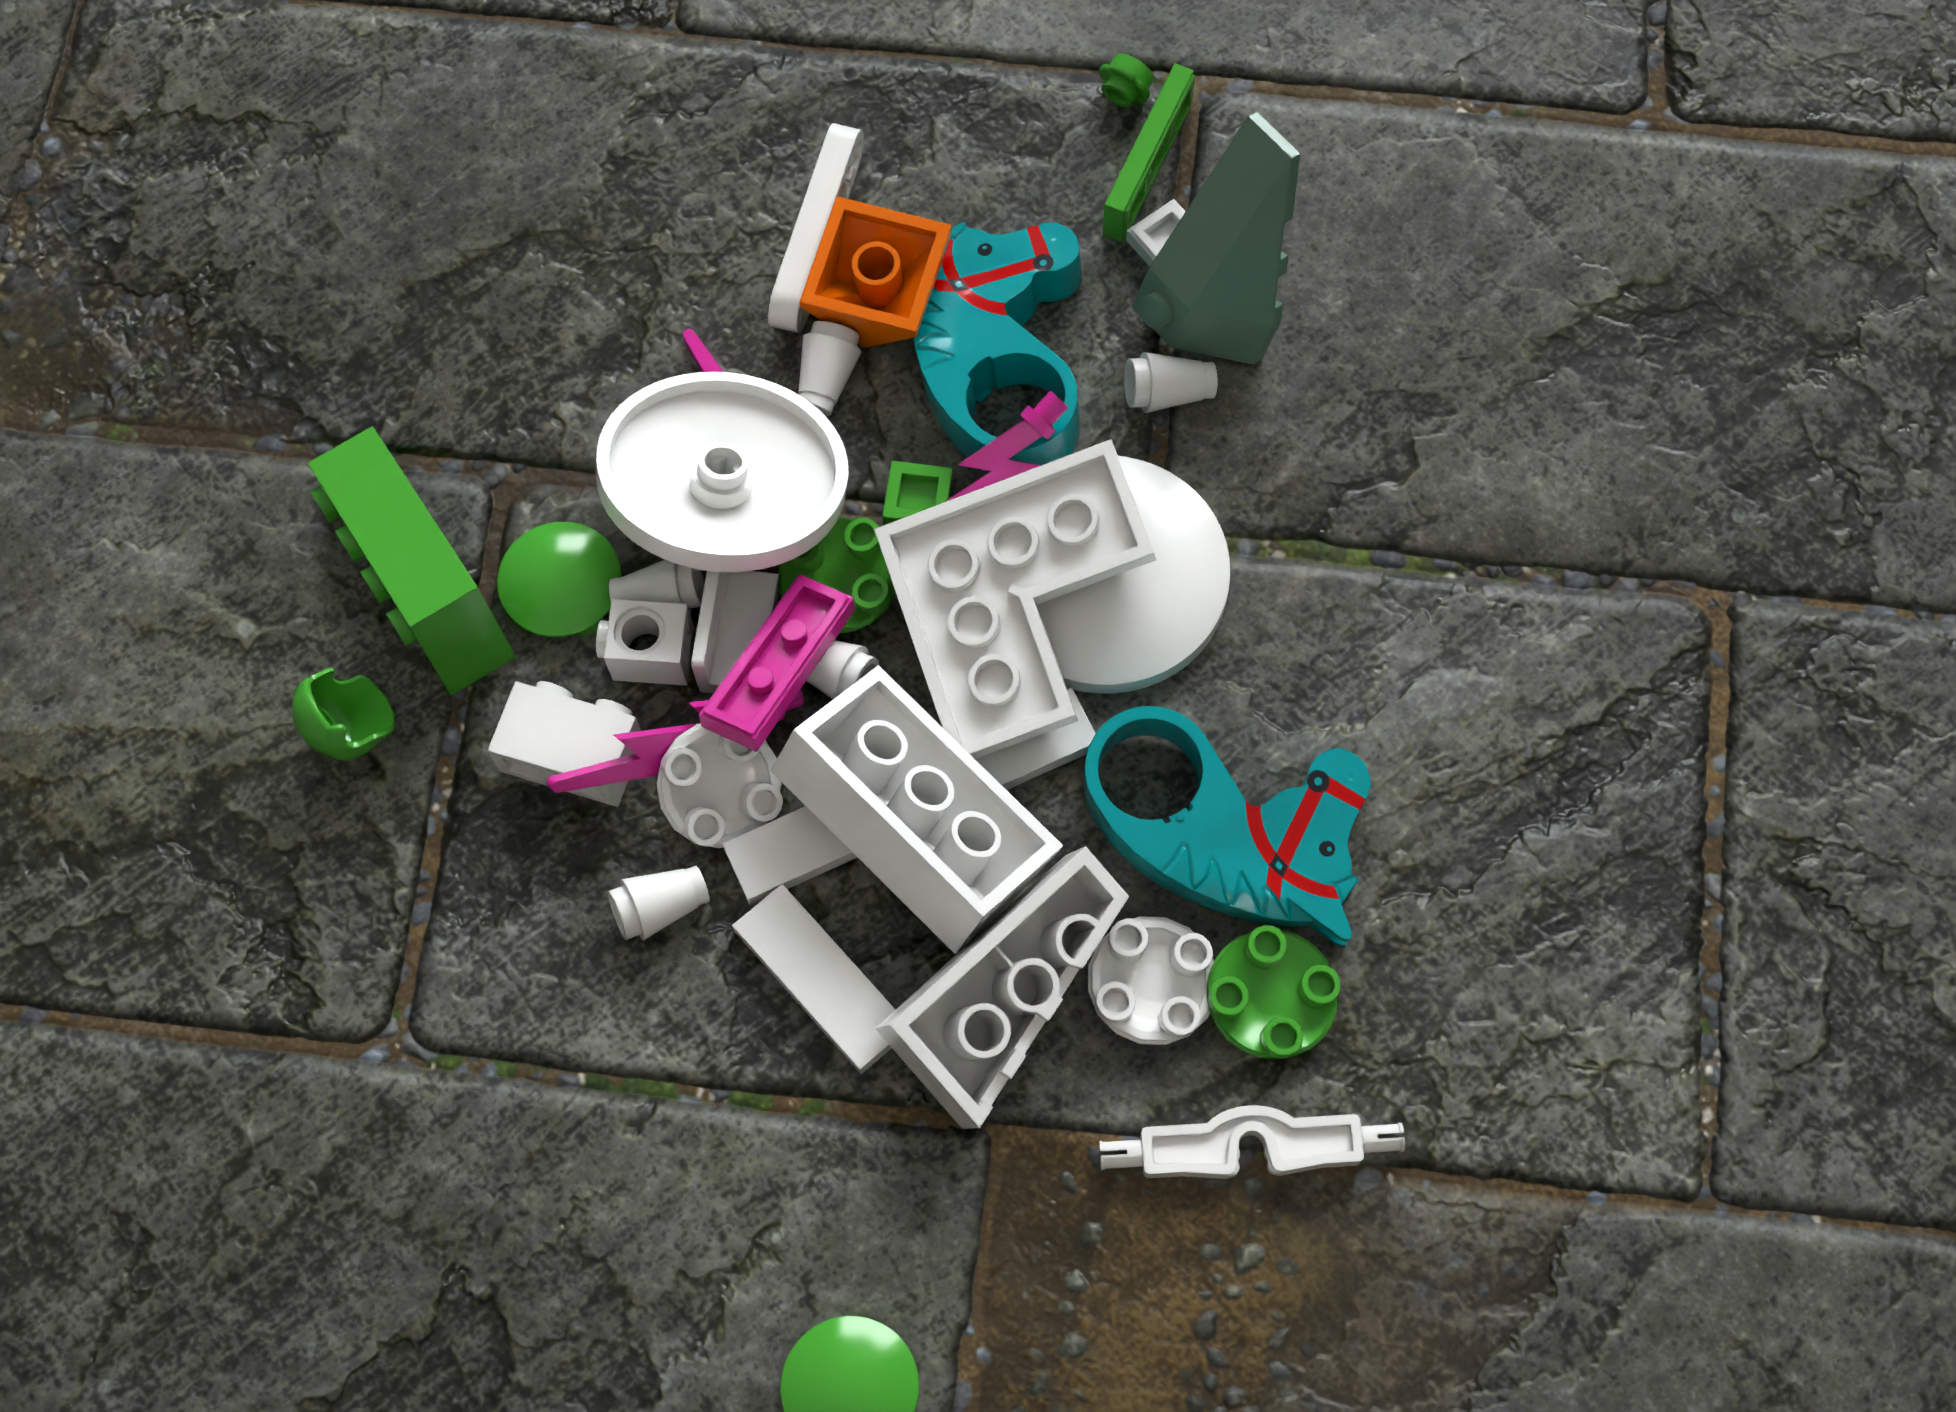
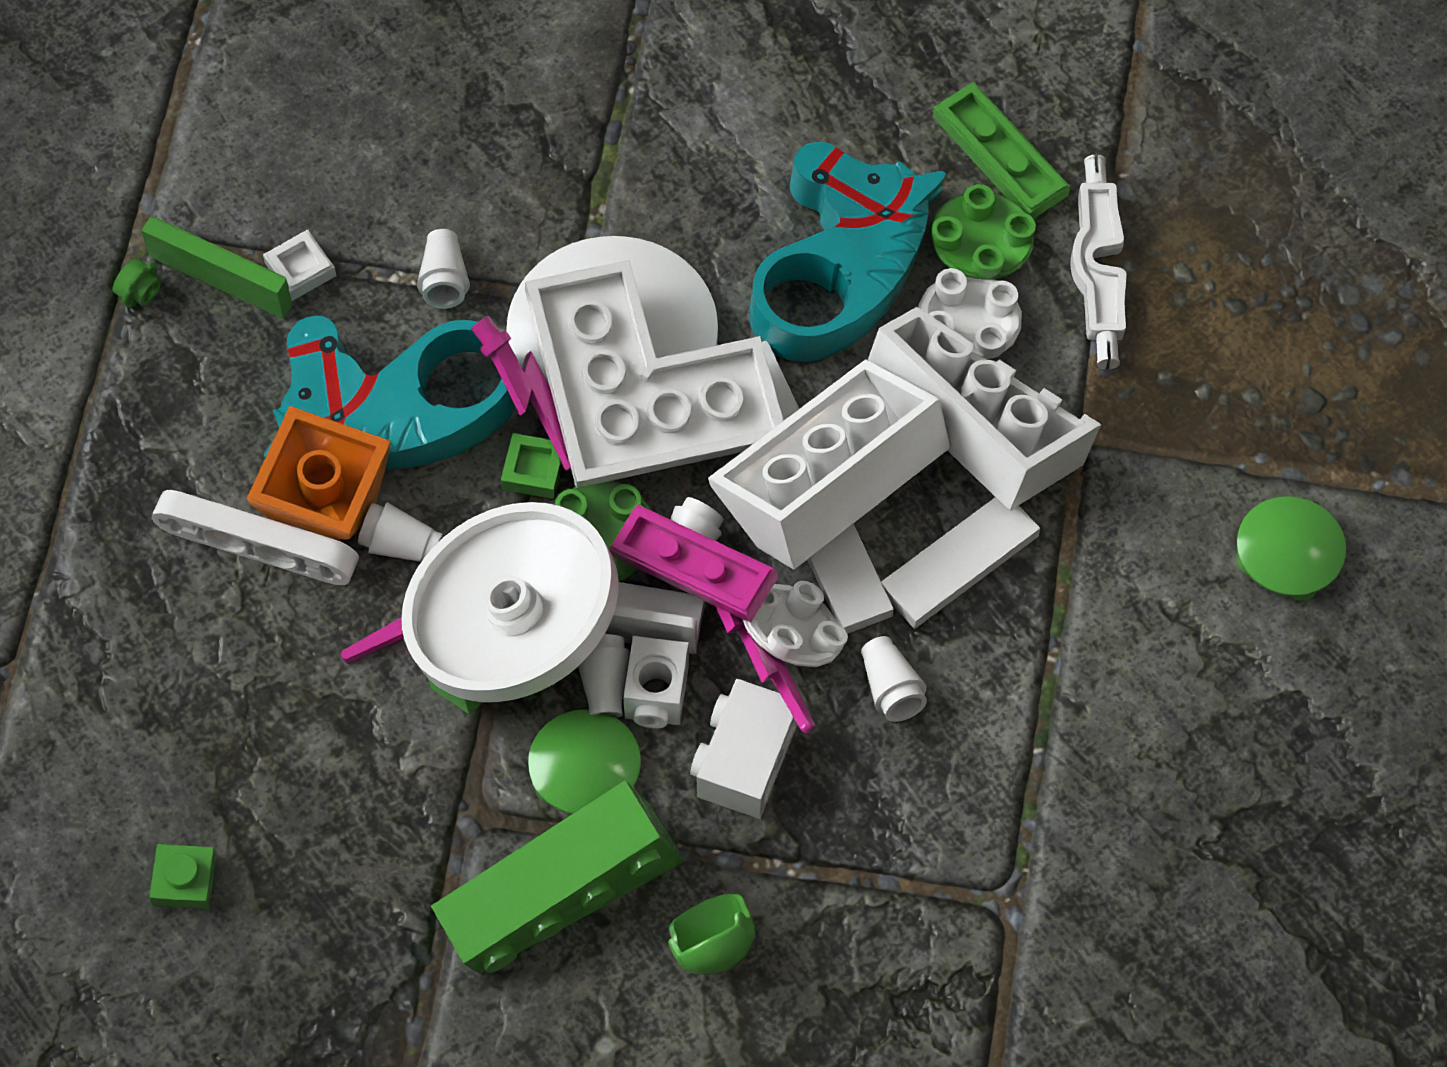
camera: 90 degrees left, 5 degrees down
(437, 209) = (183, 876): none -> bright green plate
(1222, 262) = (355, 186): sand green wedge -> none
(1404, 1017) = (1001, 150): none -> bright green tile

